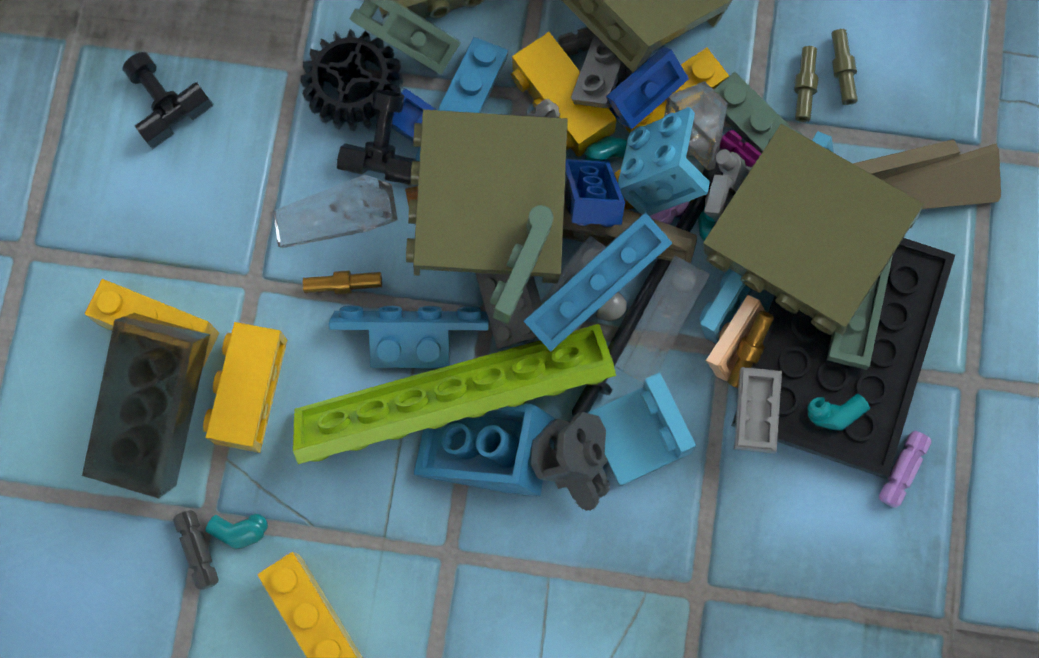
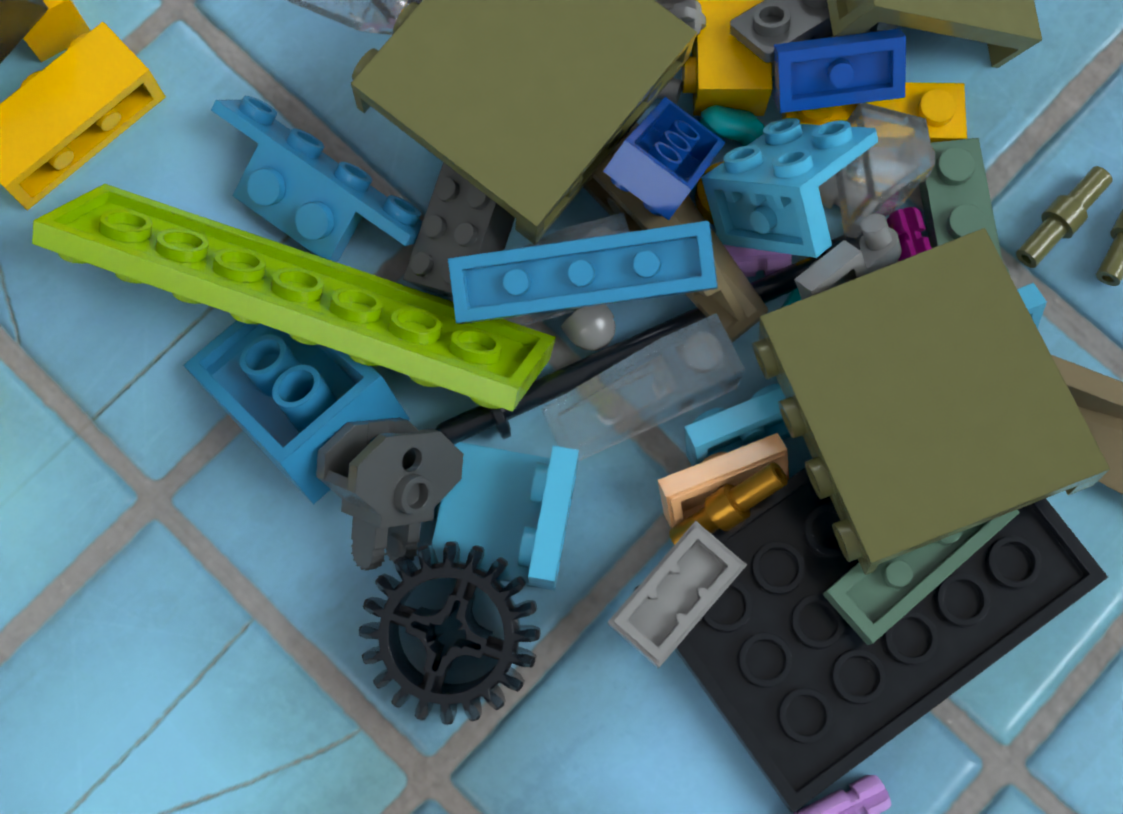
camera: 30 degrees right, 0 degrees up
(342, 282) = (280, 70): pearl gold bar -> none
(522, 262) = (489, 174): sand green plate -> none
(665, 528) = (419, 623): none -> black gear
(835, 416) = (778, 678): teal arm -> none

